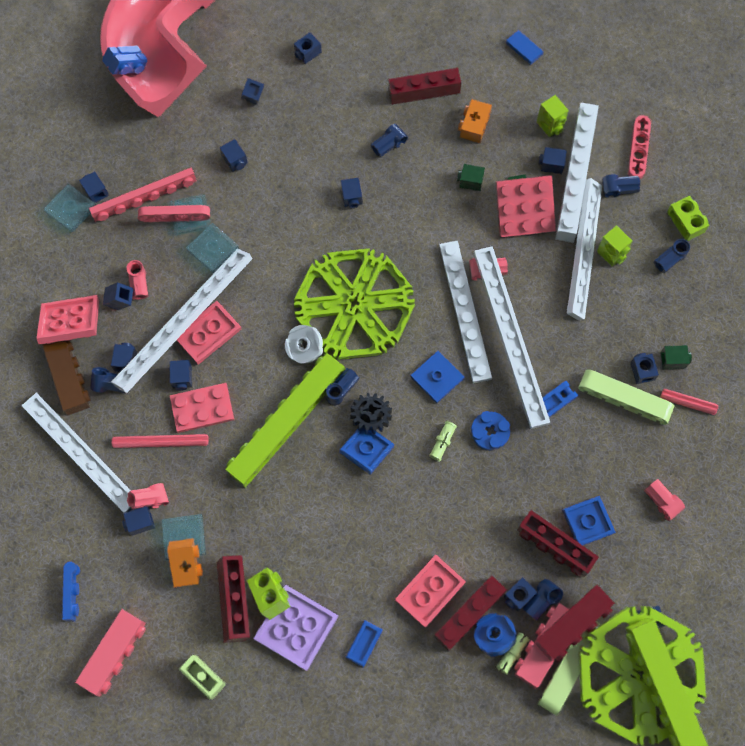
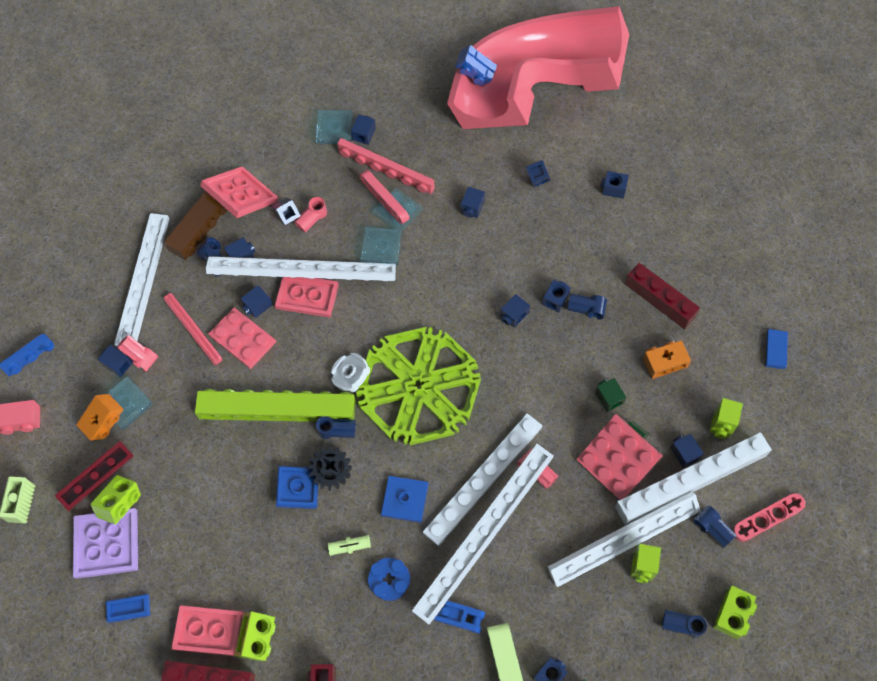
camera: 55 degrees right, 5 degrees down
(367, 161) = (553, 302): none -> dark blue brick
(463, 556) = (249, 634): none -> lime brick

